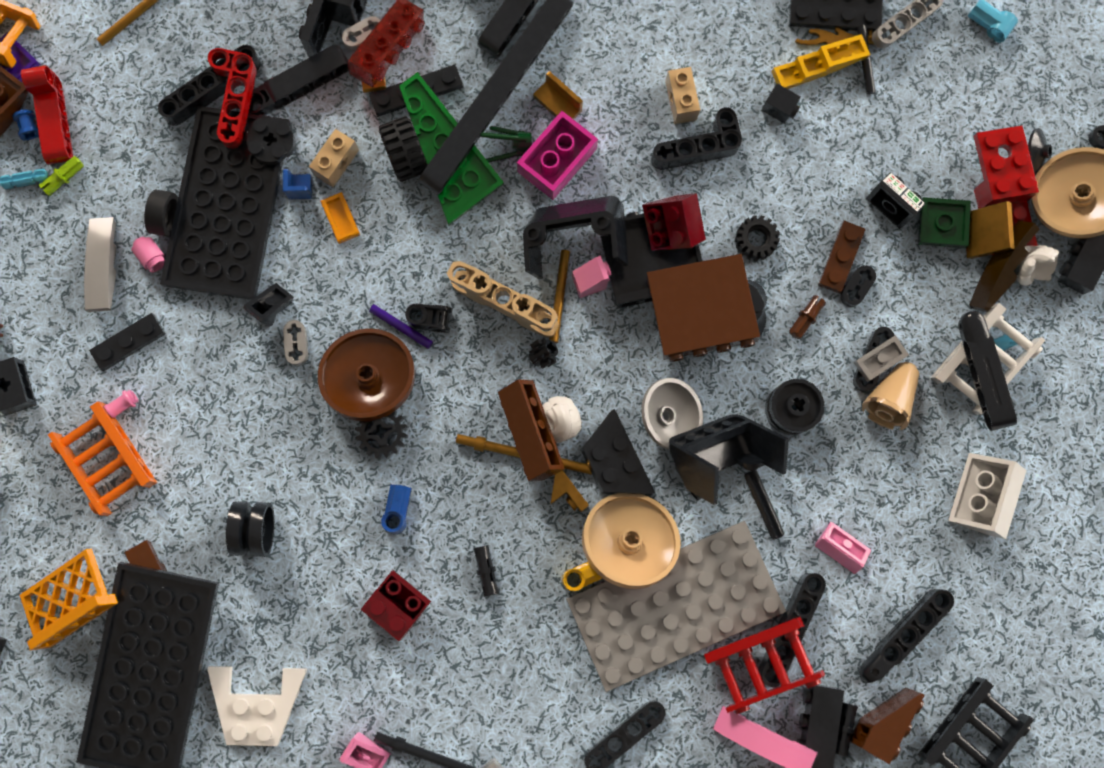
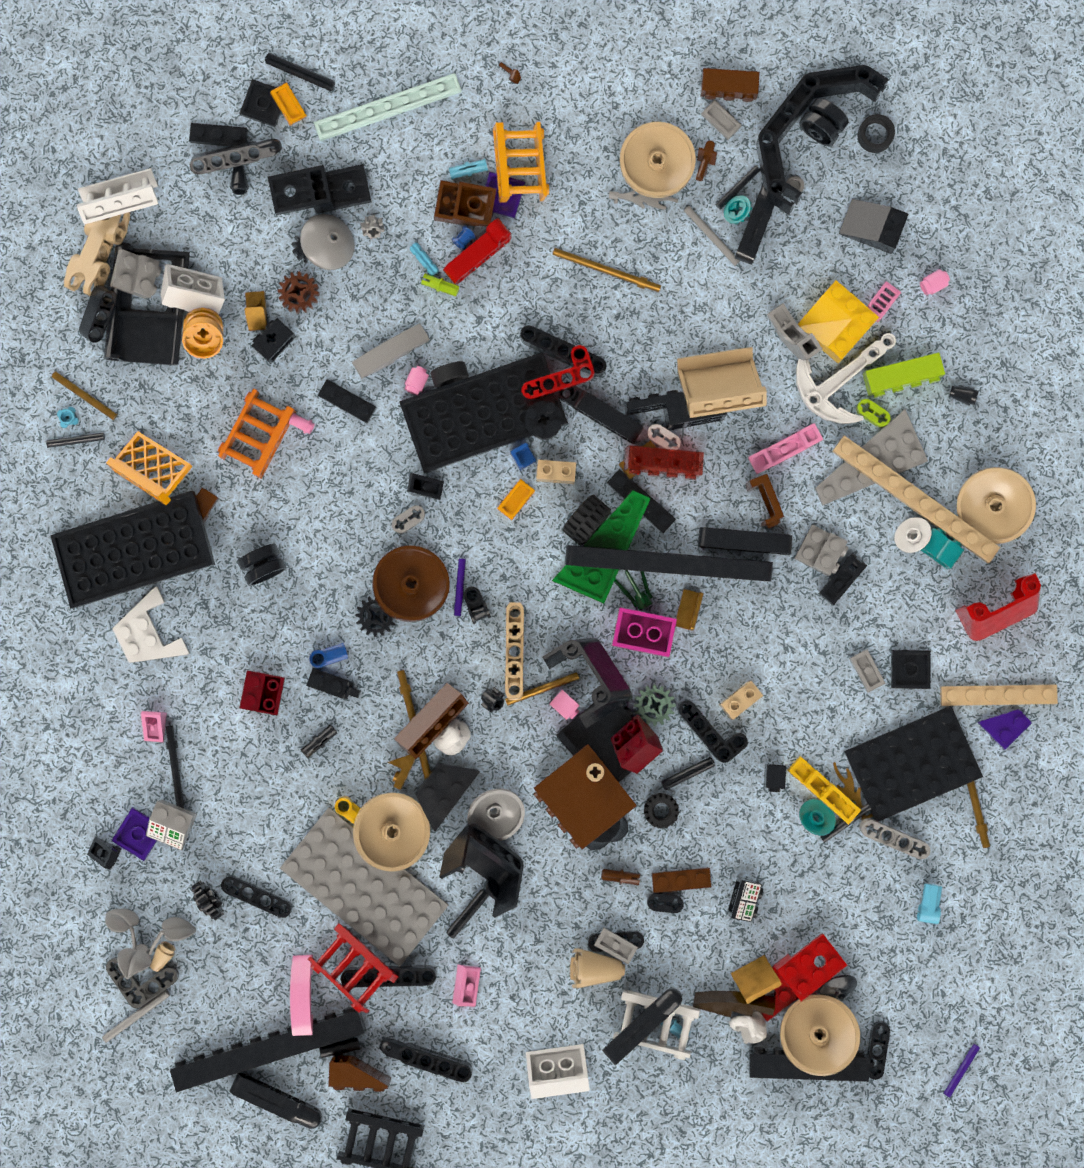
camera: 65 degrees right, 5 degrees up
(430, 523) = (331, 684): none -> black hinge
(630, 185) = (649, 693): none -> sand green gear
(678, 271) = (599, 768): none -> tan bush
(731, 191) = (688, 773): none -> black axle
(808, 405) = (544, 911): black wheel -> none
(846, 83) = (821, 813): none -> teal dish
(944, 222) = (747, 943): dark green plate -> none

